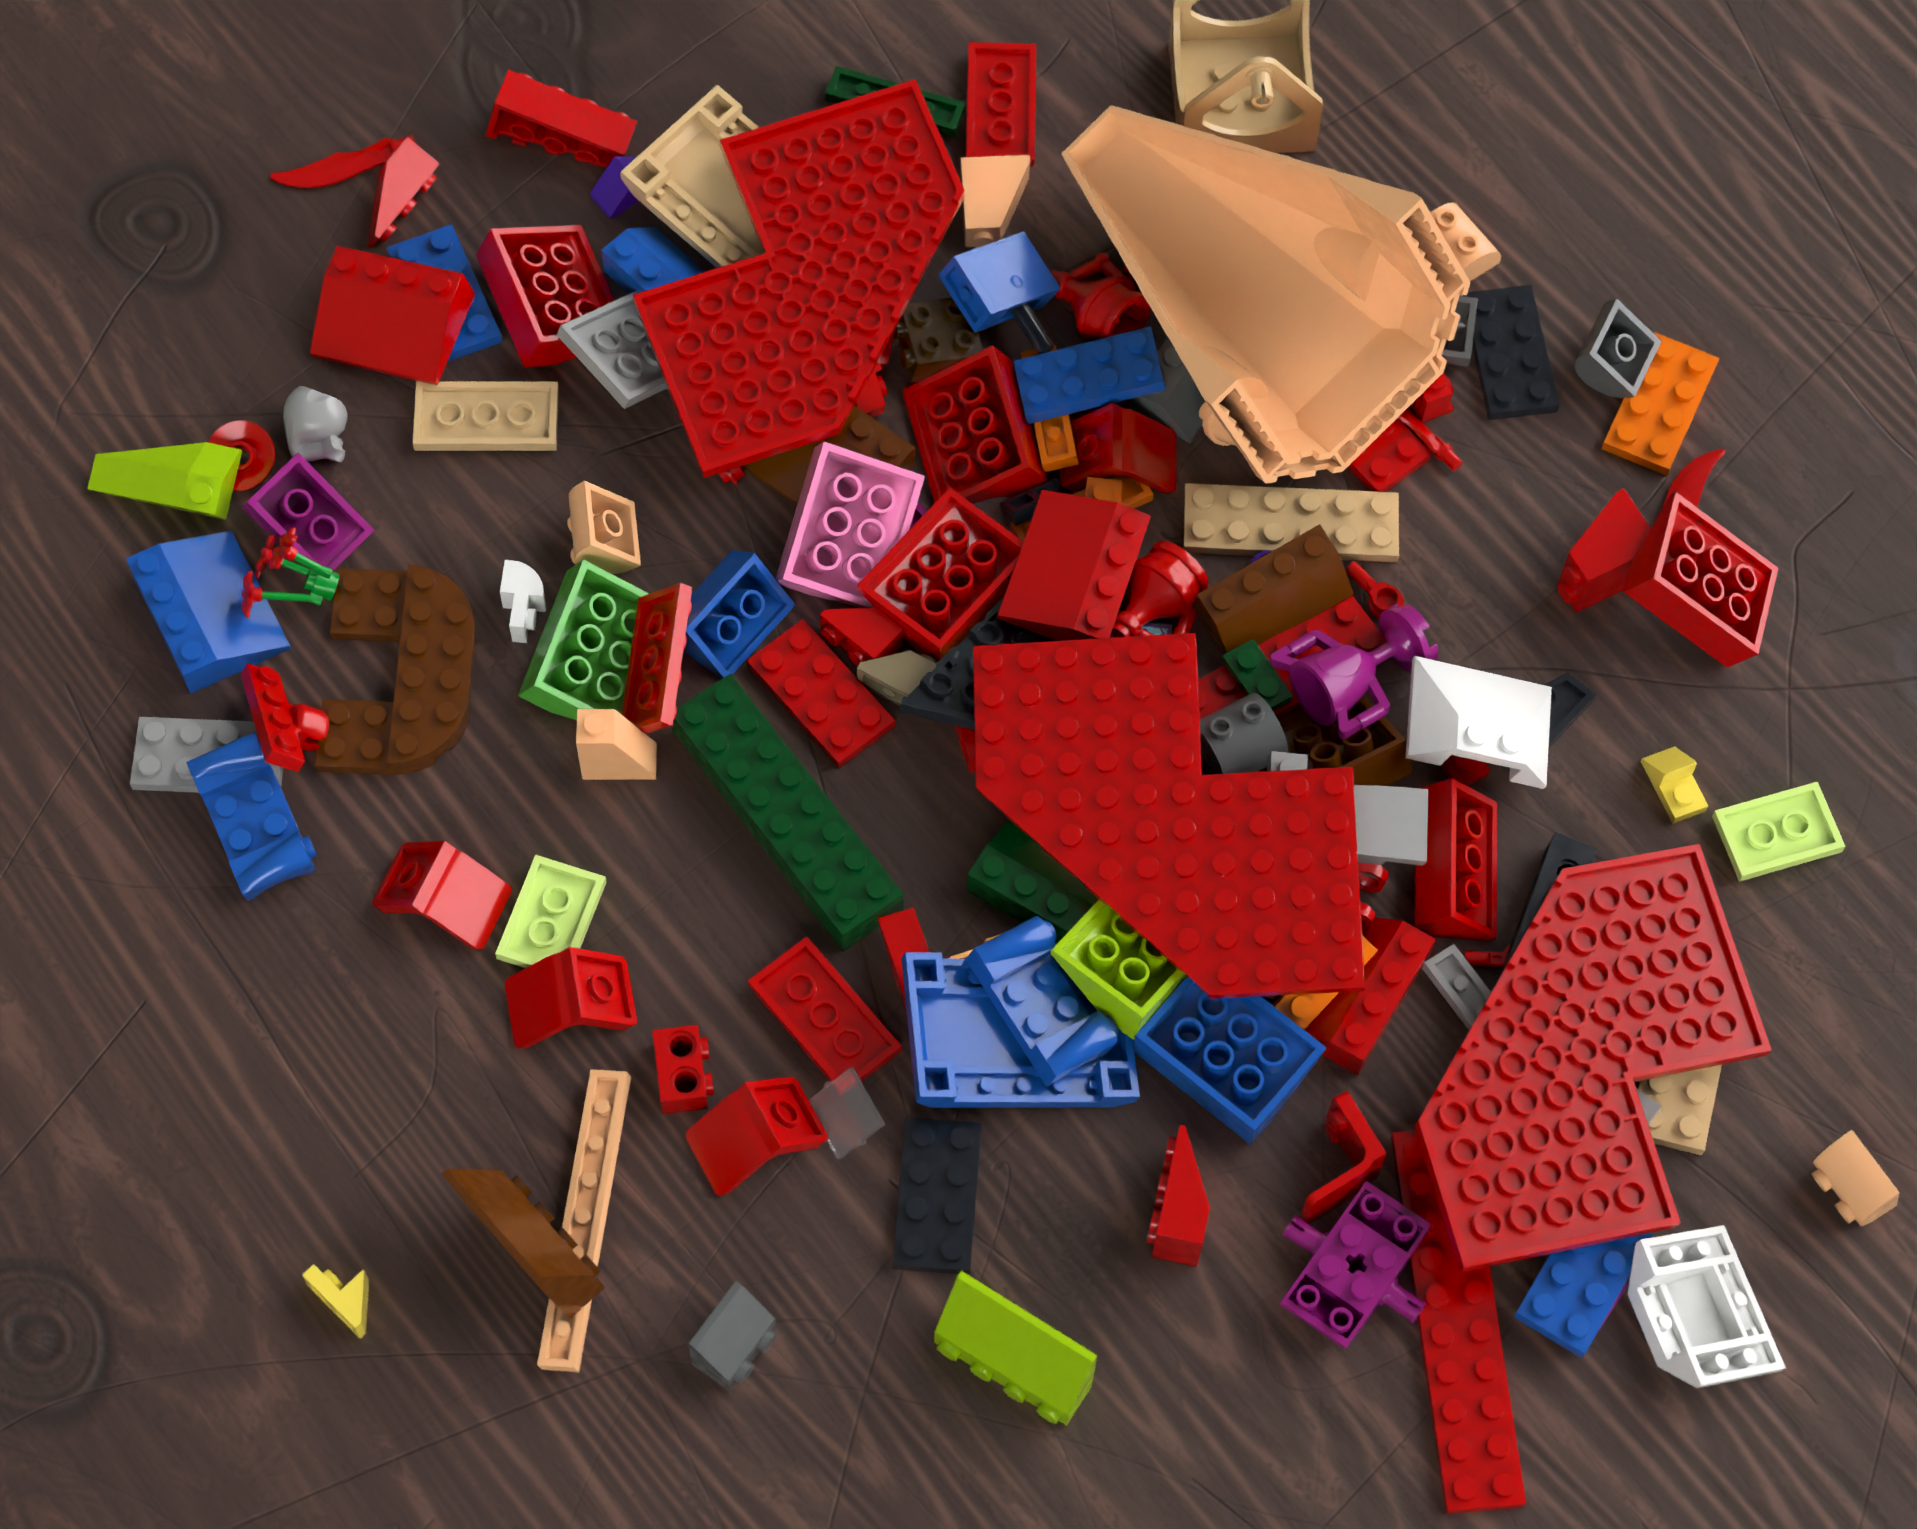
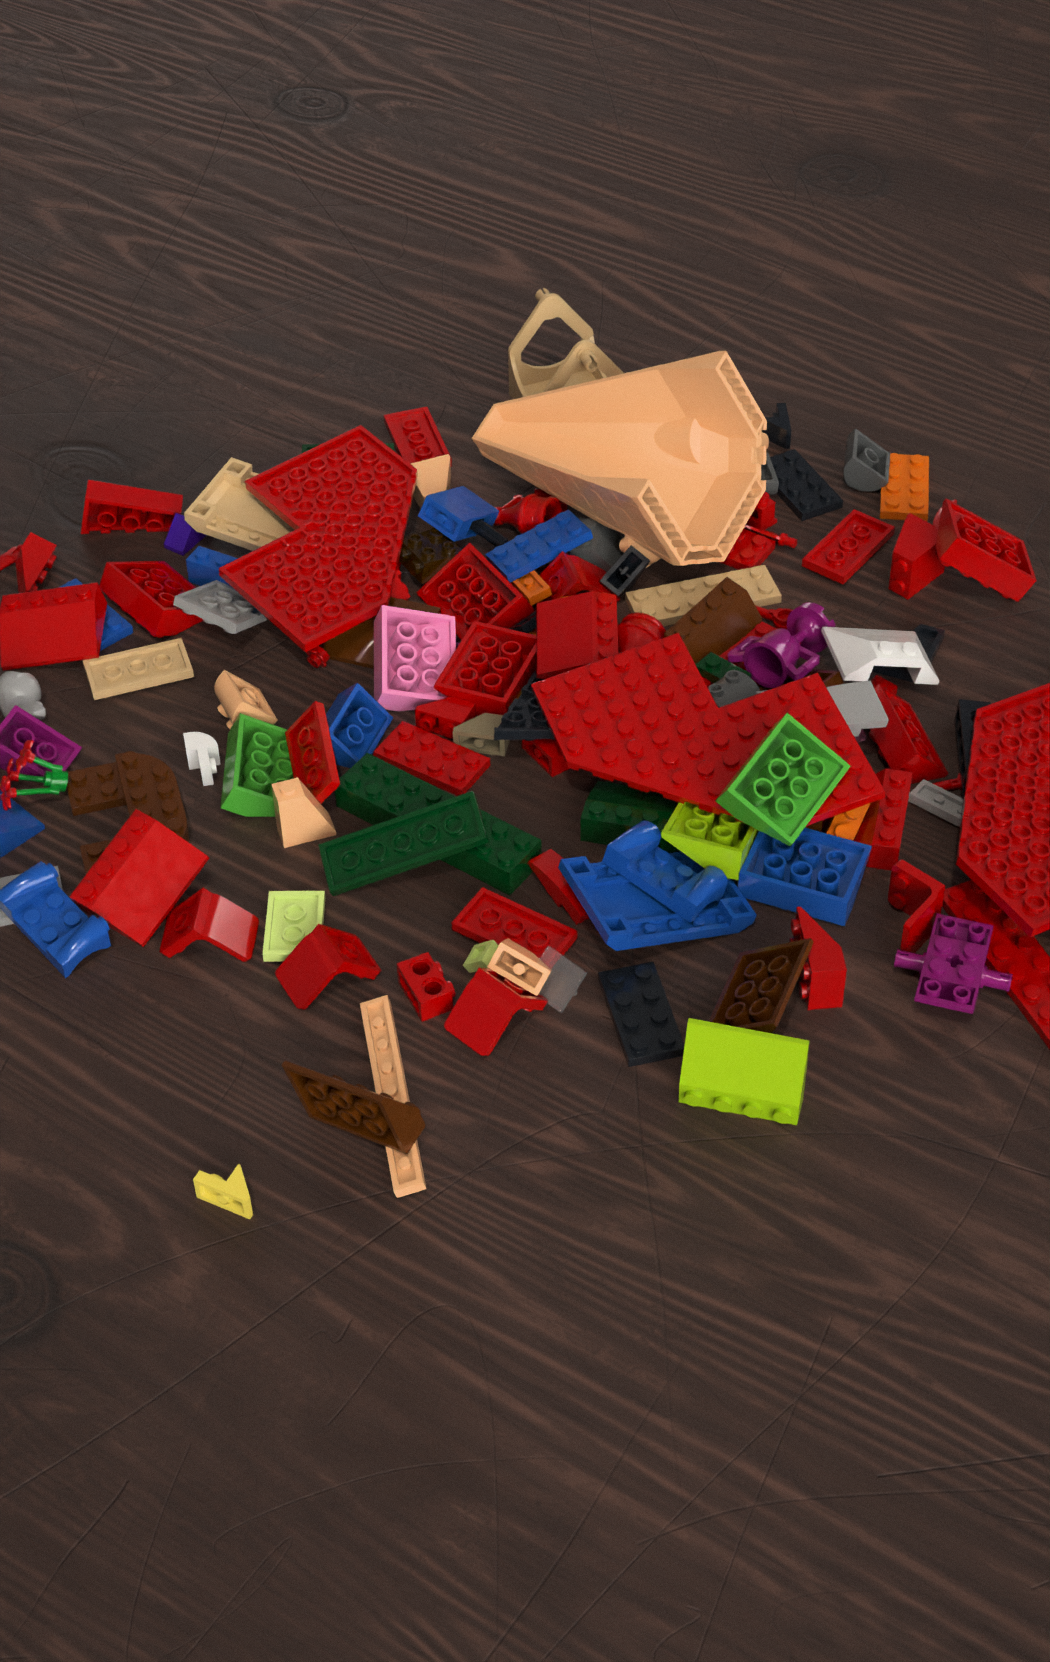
camera: 15 degrees left, 20 degrees down
(281, 726) = (63, 859): red plate -> none
(375, 789) = (139, 877): none -> red slope
(724, 844) = (403, 843): none -> dark green plate
(732, 1338) = (533, 1130): dark grey slope -> none
(767, 1045) = (480, 956): none -> yellowish green plate
(804, 1085) = (520, 966): none -> light nougat slope
(1077, 1238) = (761, 986): none -> reddish brown slope
(1191, 456) = (625, 572): none -> black slope
(1233, 934) = (783, 781): none -> bright green slope
(1522, 238) = (779, 427): none -> black slope
(1530, 495) = (848, 546): none -> red plate
(1674, 783) = (1019, 666): light yellow slope -> none

